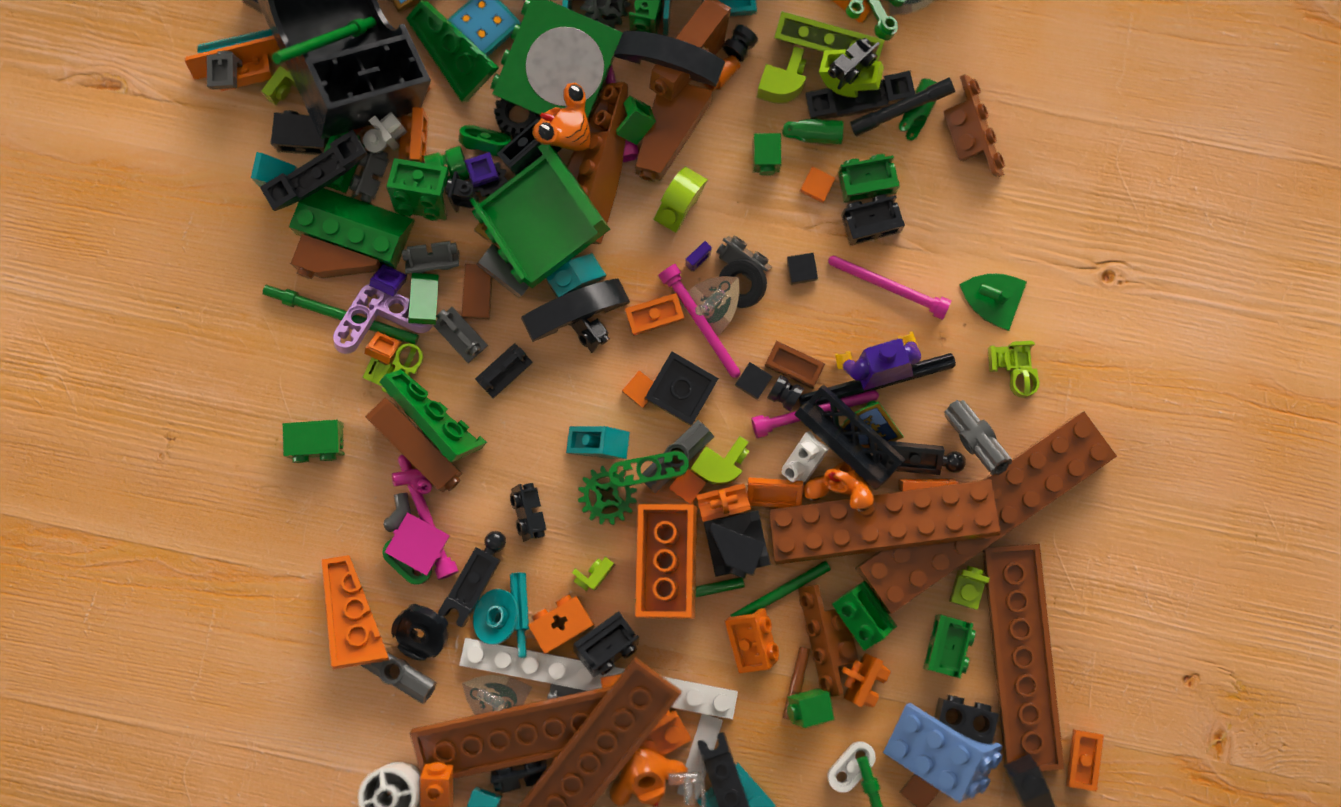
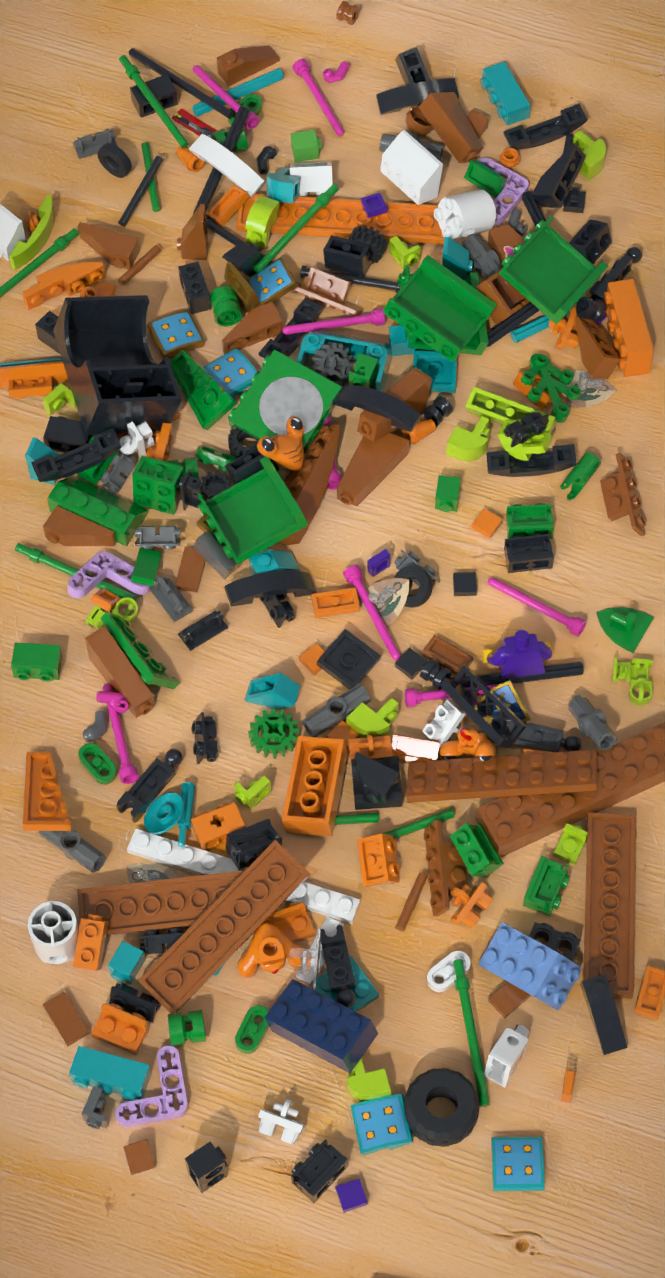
camera: 10 degrees right, 20 degrees down
(222, 70) = (15, 380): dark grey bracket -> none
(354, 28) = (126, 359): green bar -> none
(388, 280) = (119, 551): dark purple tile -> none
(417, 544) = (108, 749): dark pink piece -> none
(426, 620) = (111, 815): black plate -> none
(481, 169) = (210, 476): dark purple tile -> none
(629, 479) = (293, 705): green beam -> none
(638, 121) = (342, 454): green panel -> none
(679, 198) = (370, 513): lime brick -> none
(810, 708) = (419, 917): green brick -> none
(815, 131) = (490, 482): green piece -> none
(930, 94) = (586, 462): black piece -> none

